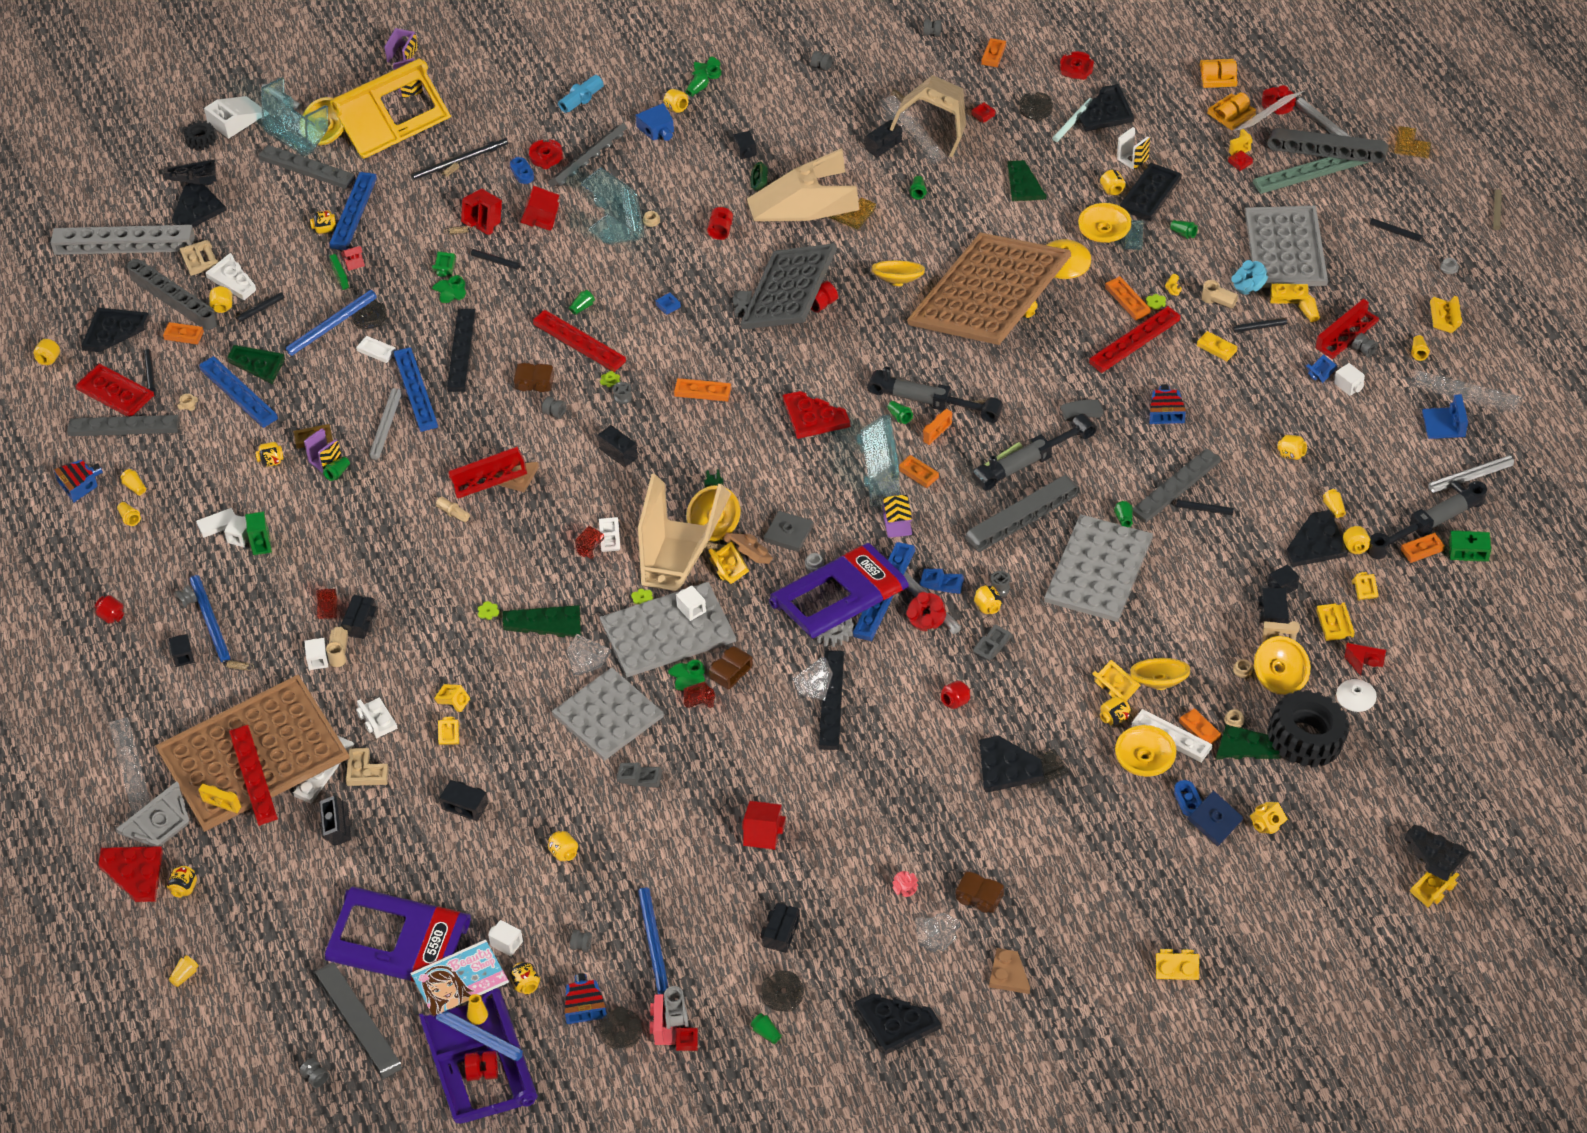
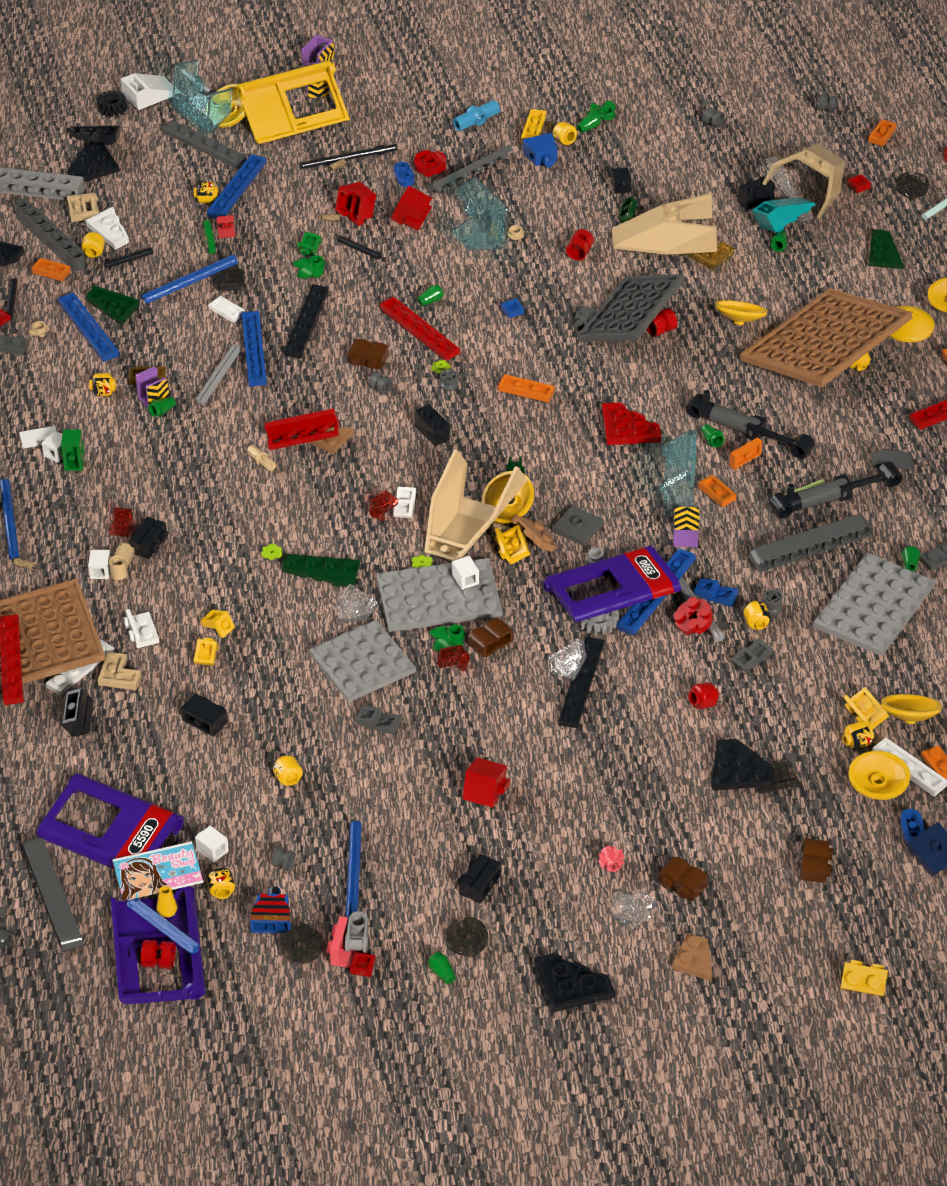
camera: 10 degrees right, 5 degrees down
(642, 95) = (534, 124): none -> yellow plate
(913, 158) = (778, 213): none -> teal slope
(1102, 850) = (815, 860): none -> reddish brown brick

